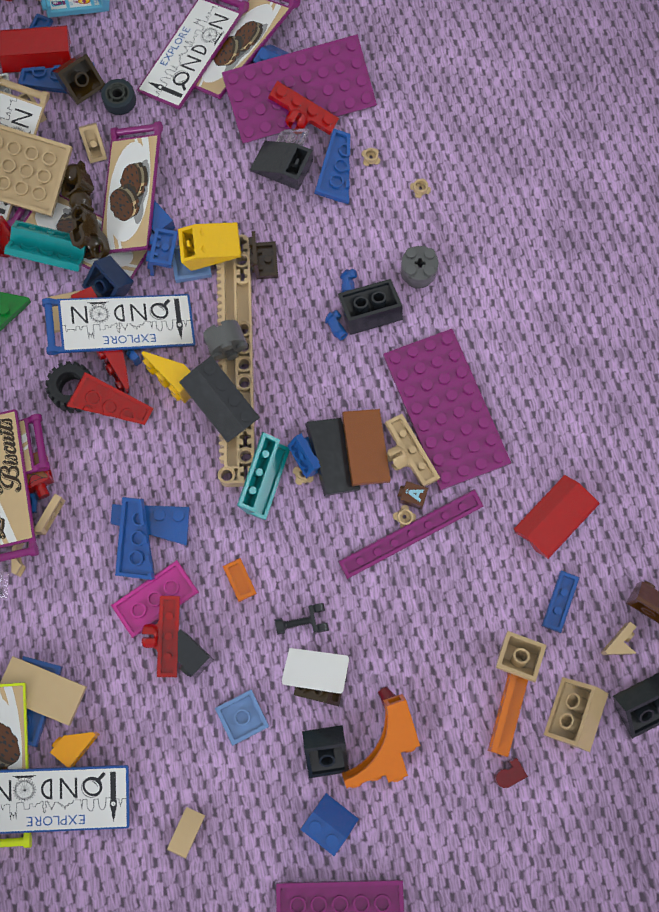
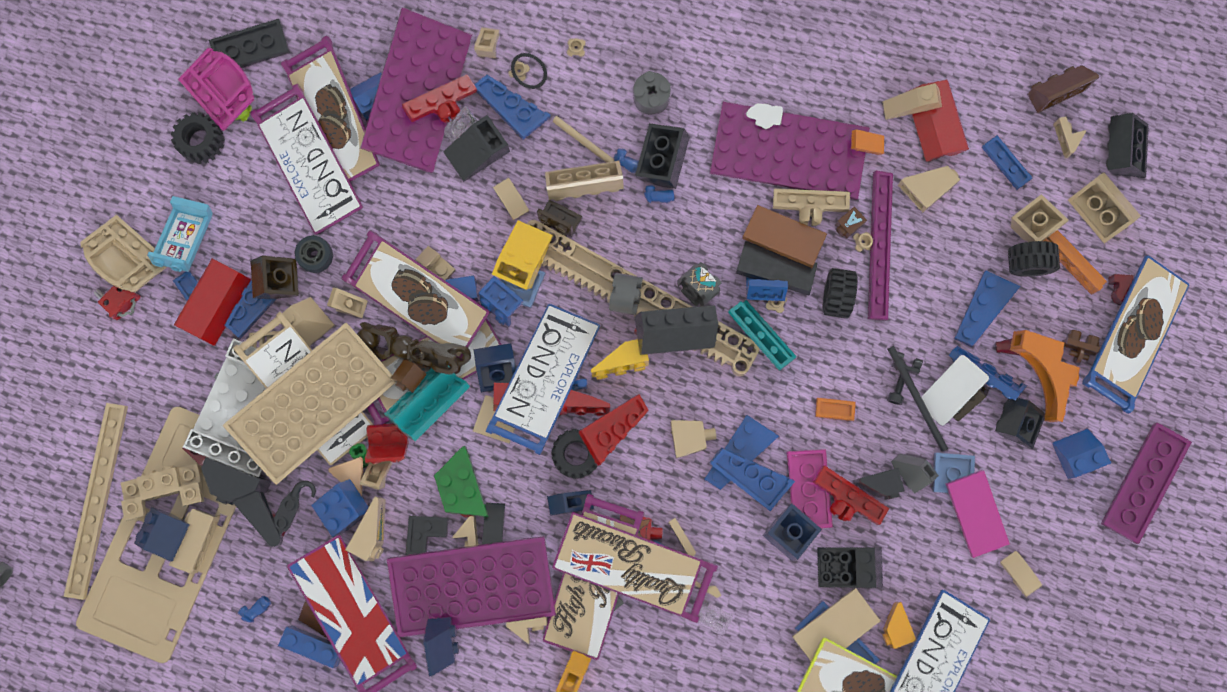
camera: 55 degrees left, 5 degrees up
(27, 405) = (567, 502): none -> dark blue slope
(57, 219) = (408, 376): none -> reddish brown brick
(60, 122) = (308, 320): none -> tan slope
(104, 603) = (792, 532): none -> dark blue slope
(105, 674) = (850, 567): none -> black slope
(140, 470) = (690, 437): none -> tan torso
(167, 190) = (434, 262): none -> tan slope
(217, 759) = (977, 513): none -> dark pink tile
(222, 679) = (915, 471): none -> dark grey slope
(257, 213) = (510, 198): none -> tan slope
(275, 400) = (699, 284): none -> dark grey brick
(307, 256) = (584, 180): none -> tan slope
(310, 610) = (899, 365): none -> black bar
(340, 519) = (840, 293): none -> black tyre
(344, 240) = (584, 141): none -> tan bar
(350, 713) = (1002, 382): none -> blue wing
(375, 117) = (486, 42): none -> tan slope
(389, 161) = (538, 60): none -> black tyre
(418, 658) = (987, 302): none -> blue wing
(435, 776) = (1073, 342): none -> reddish brown hips
(462, 368) = (765, 115): none -> white sticker
(477, 813) = (1137, 332): none -> flag
(481, 673) = (1033, 258): none -> black tyre
(491, 544) = (929, 186): none -> tan slope
(495, 467) = (867, 142): none -> orange tile
(558, 484) = (913, 101): none -> tan slope

